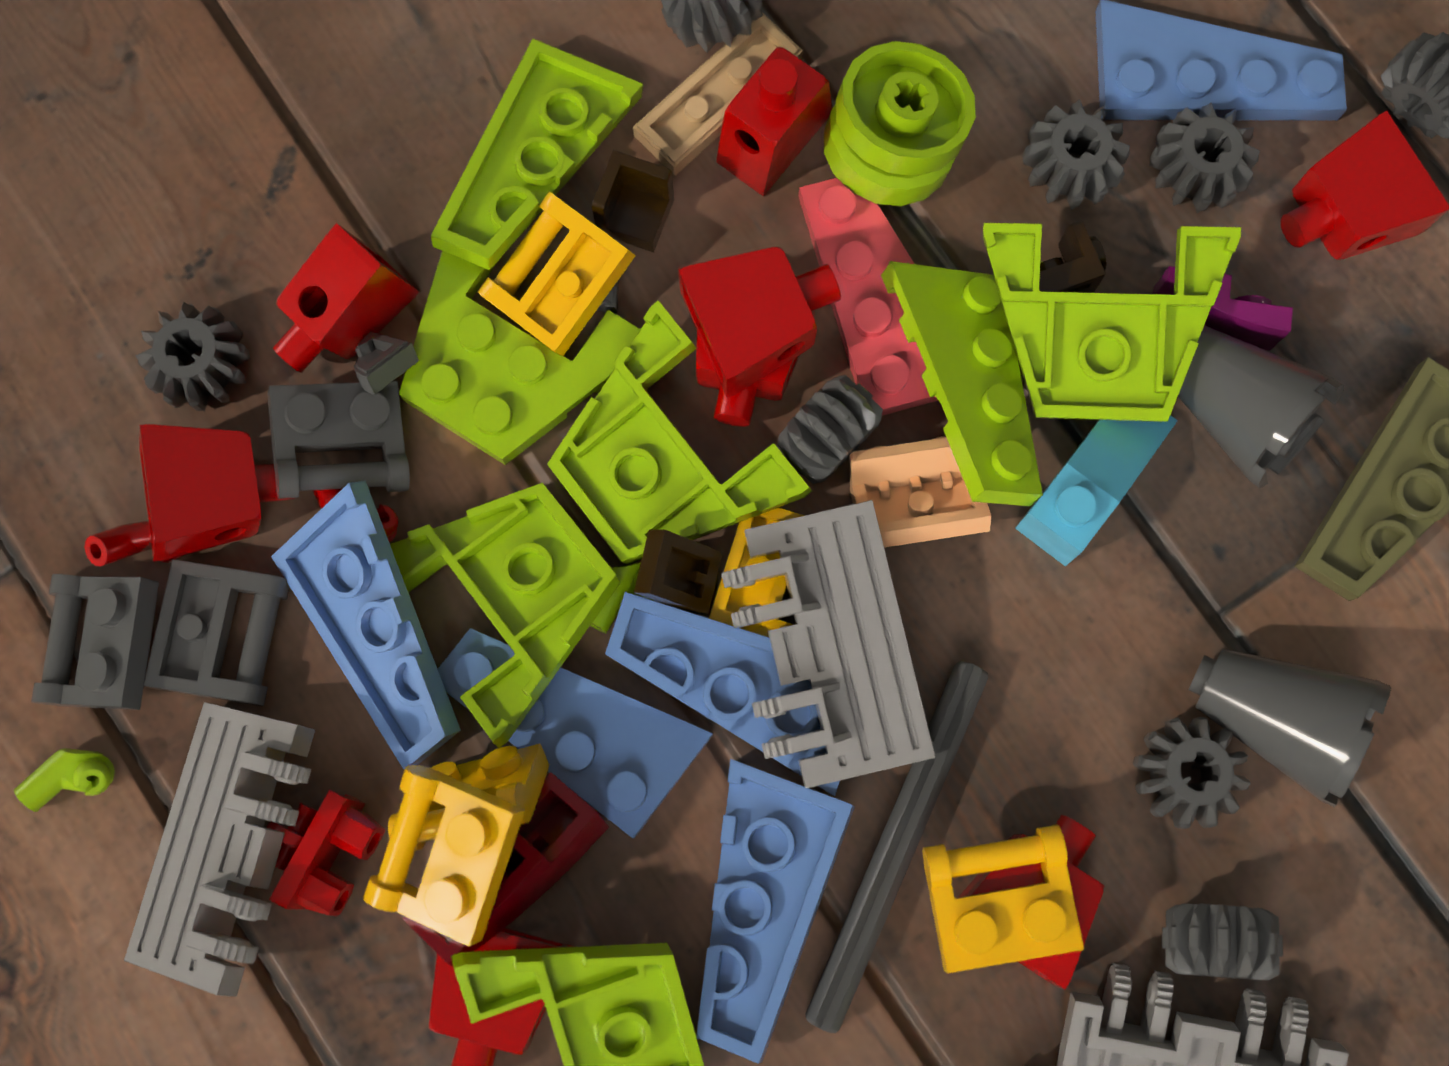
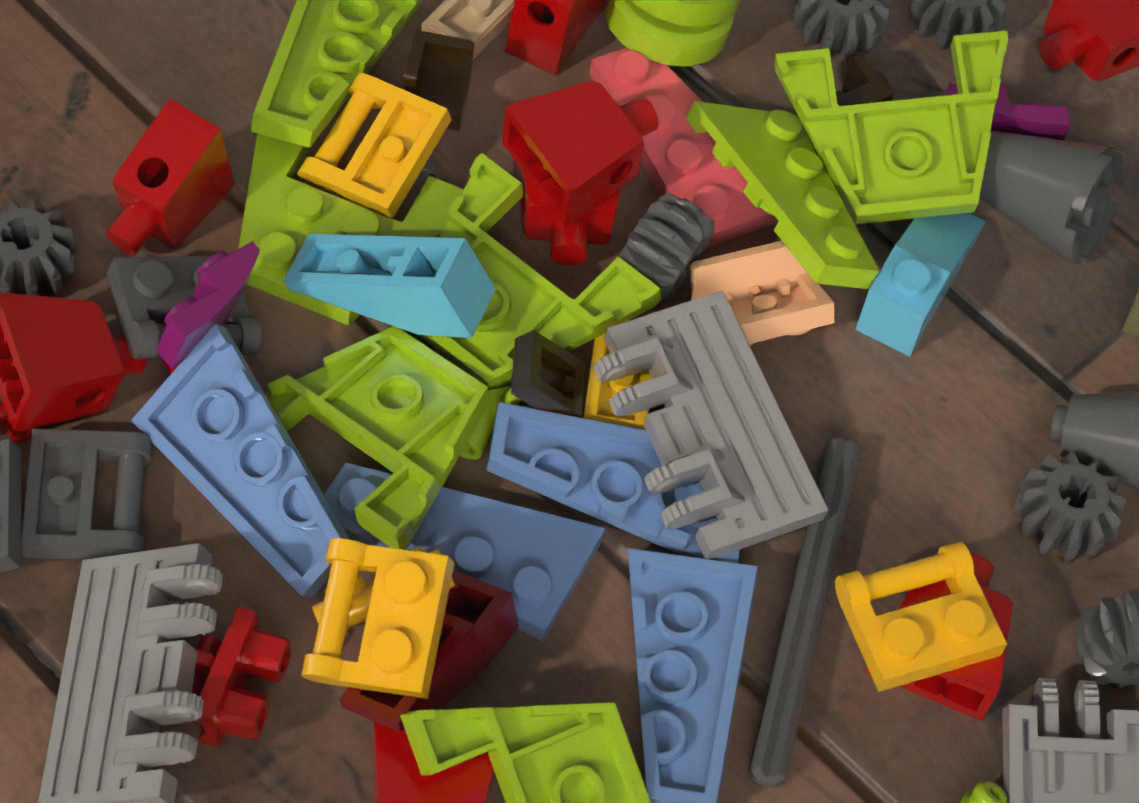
camera: 20 degrees left, 20 degrees down
(363, 440) = (212, 302): none -> magenta slope
(382, 360) = (217, 232): dark grey tile -> none
(541, 446) = (400, 280): none -> medium azure slope

